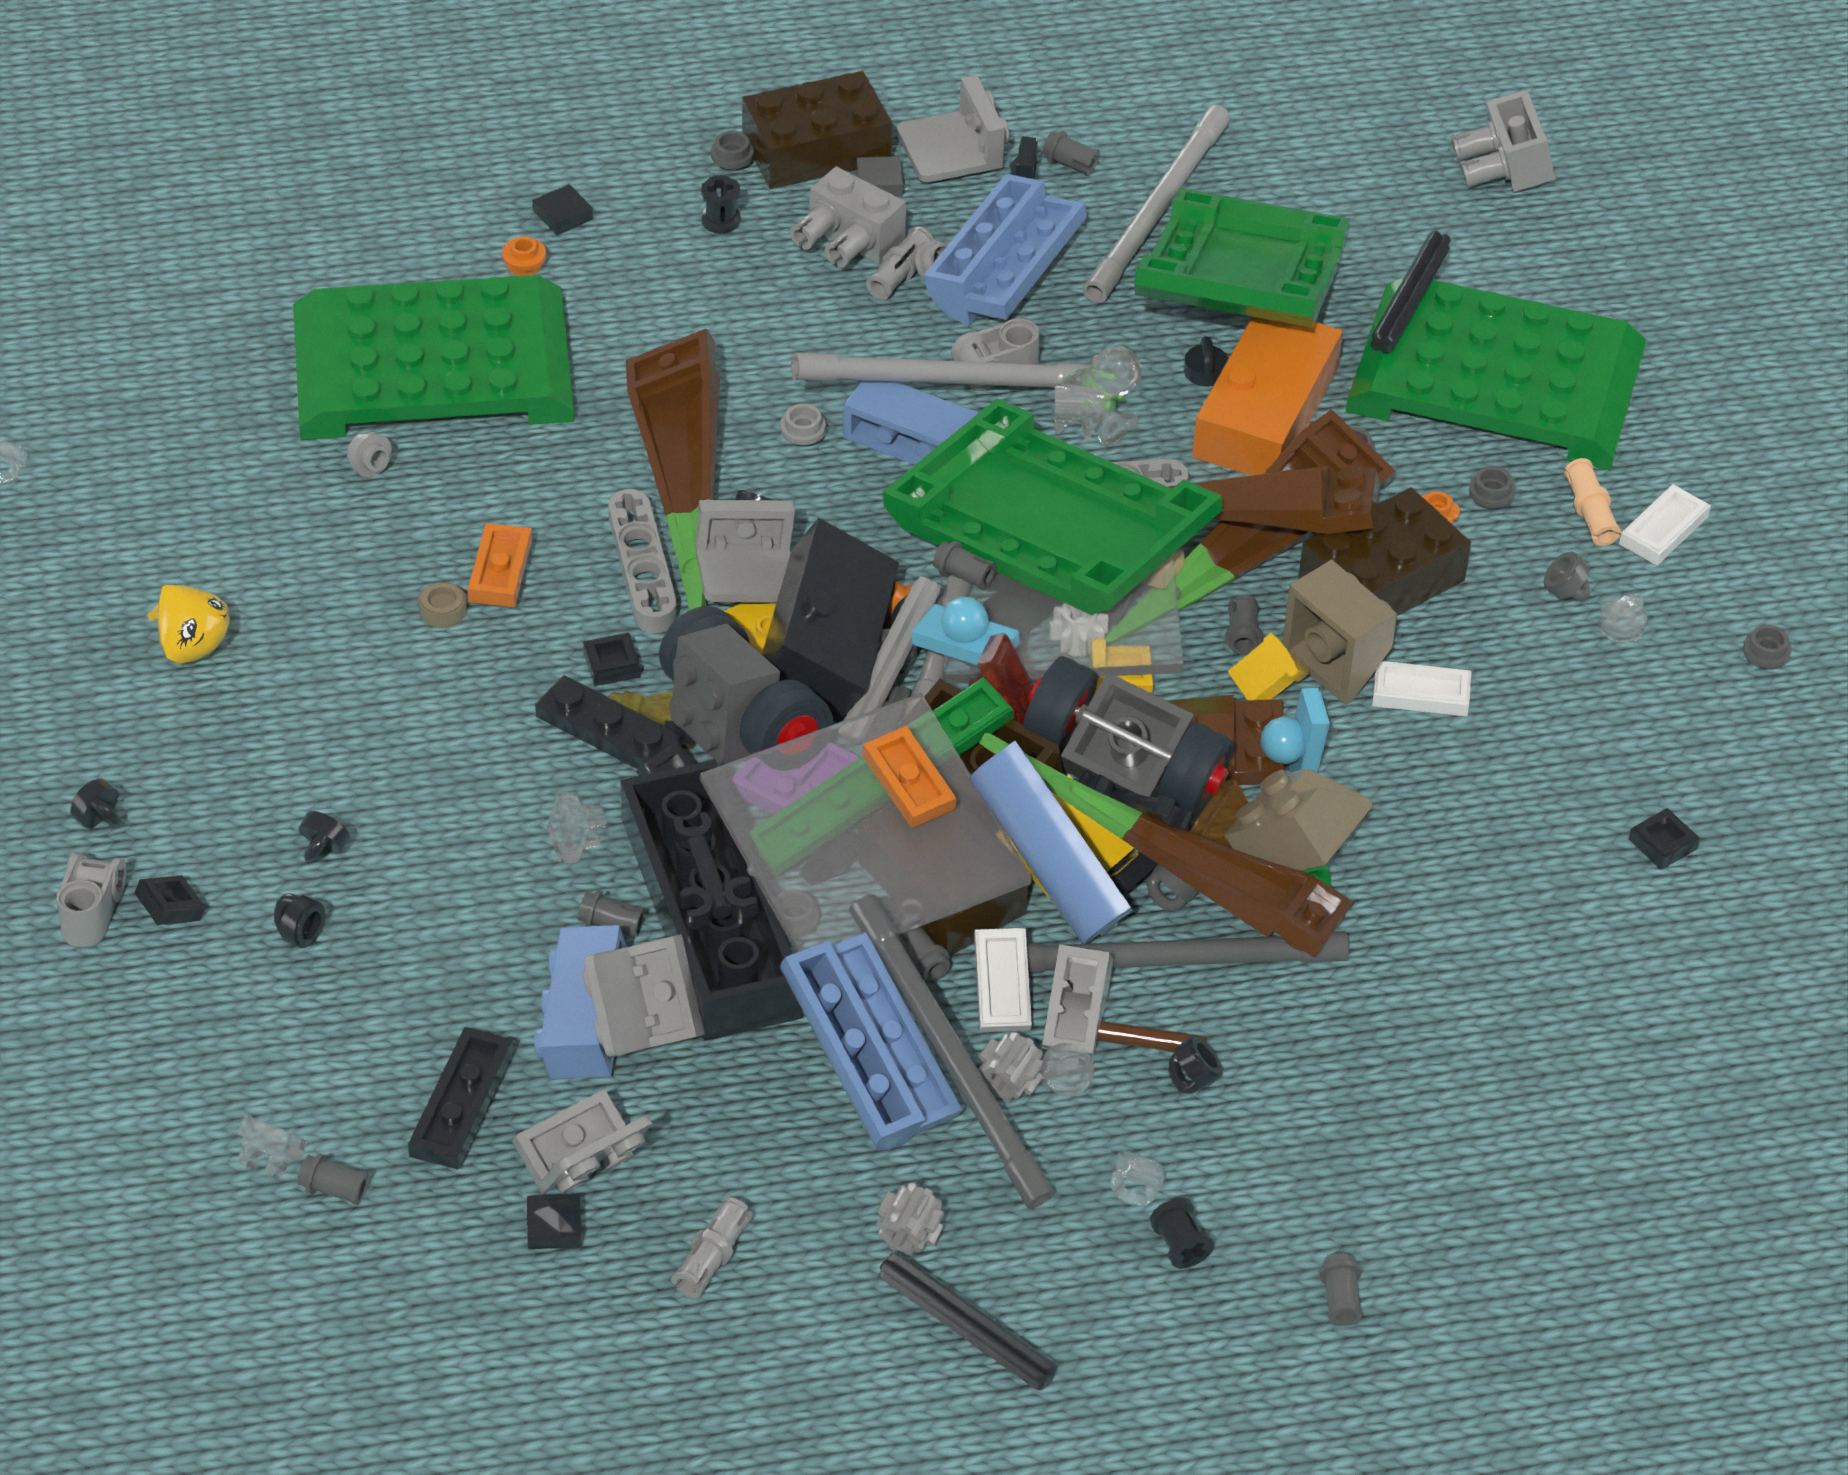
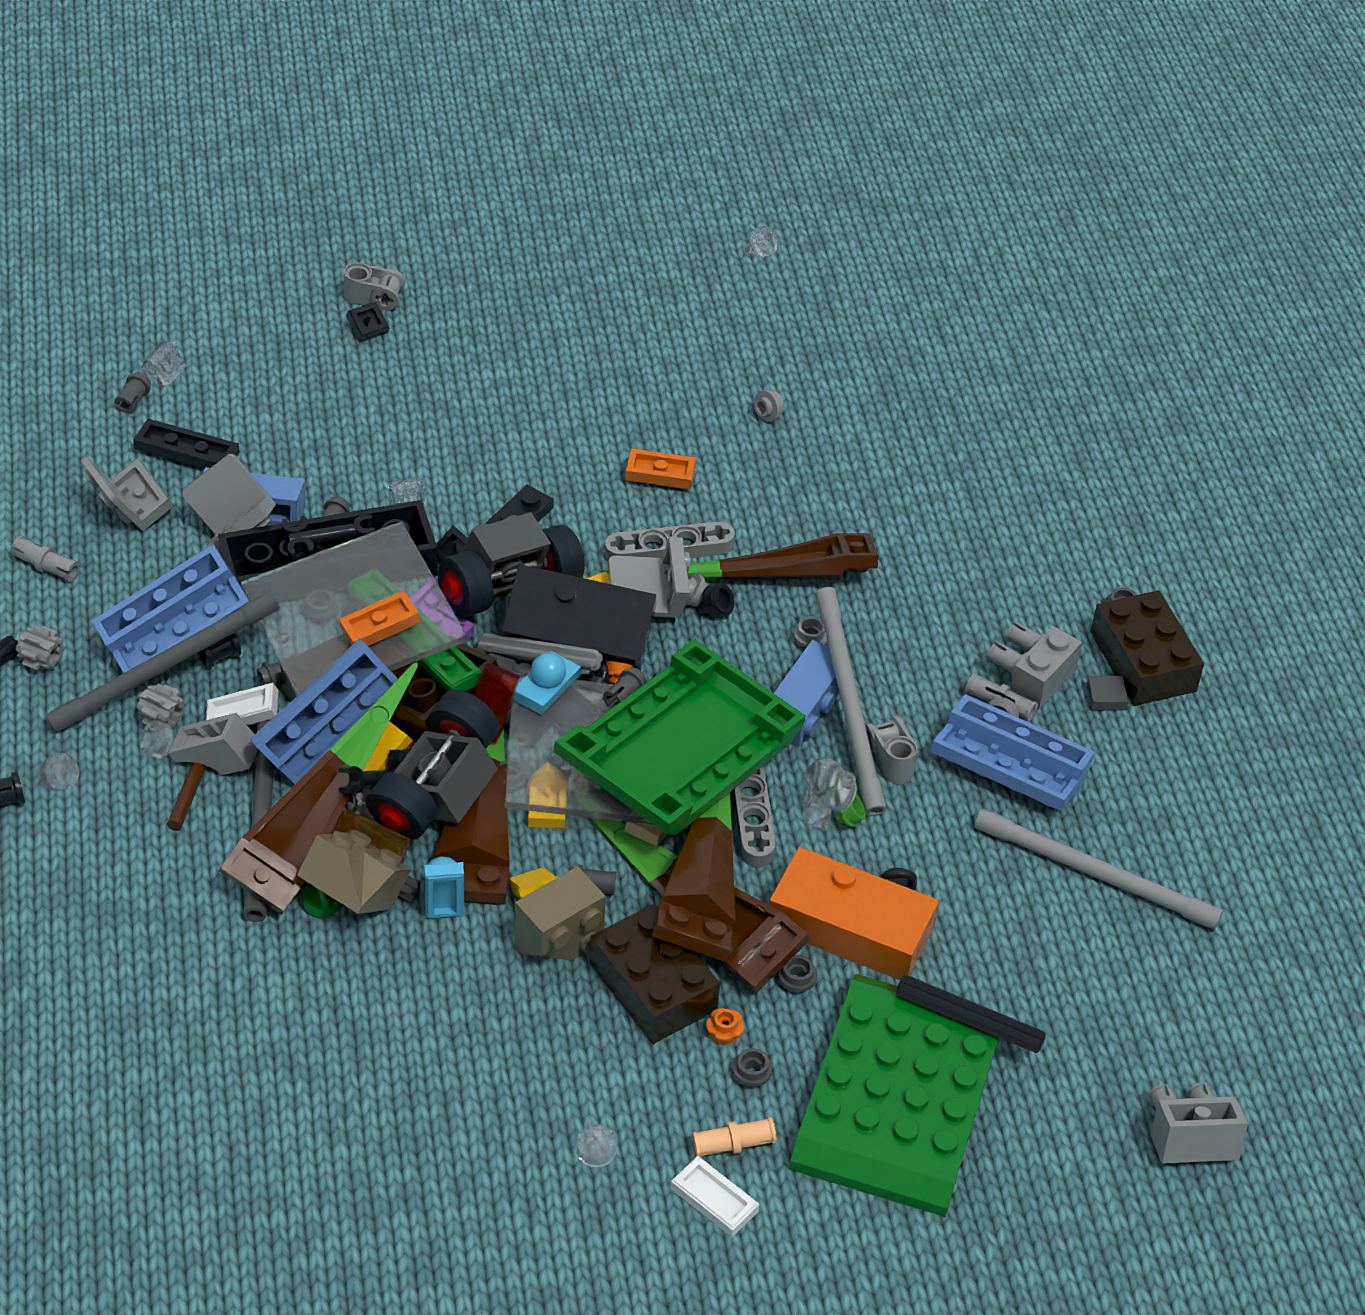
camera: 90 degrees right, 0 degrees up
(96, 804) = (447, 286): black tile -> none
(189, 622) = (599, 319): yellow piece -> none
(299, 919) = (340, 374): black tile -> none
(322, 833) = (413, 383): black tile -> none
(431, 353) = (874, 443): green slope -> none
(442, 604) = (625, 441): dark tan tile -> none
(524, 256) = (988, 488): orange plate -> none
(553, 1221) = (81, 492): black tile -> none
(562, 209) = (1044, 510): black tile -> none
(611, 659) = (579, 523): black tile -> none
(716, 205) = (1052, 587): black bush -> none
(959, 140) = (1154, 735): light grey bracket -> none
(1026, 161) = (1122, 777): black tile -> none
(1069, 152) = (1153, 806): dark grey pin -> none
(1198, 1063) = (151, 812): black tile -> none
(1244, 257) = (991, 895): green slope -> none
(1422, 688) = (524, 996): white tile -> none
(1568, 577) = (639, 1103): dark grey tile -> none
(1664, 838) = (346, 1143): black tile -> none
(1767, 647) = (556, 1239): dark grey plate -> none

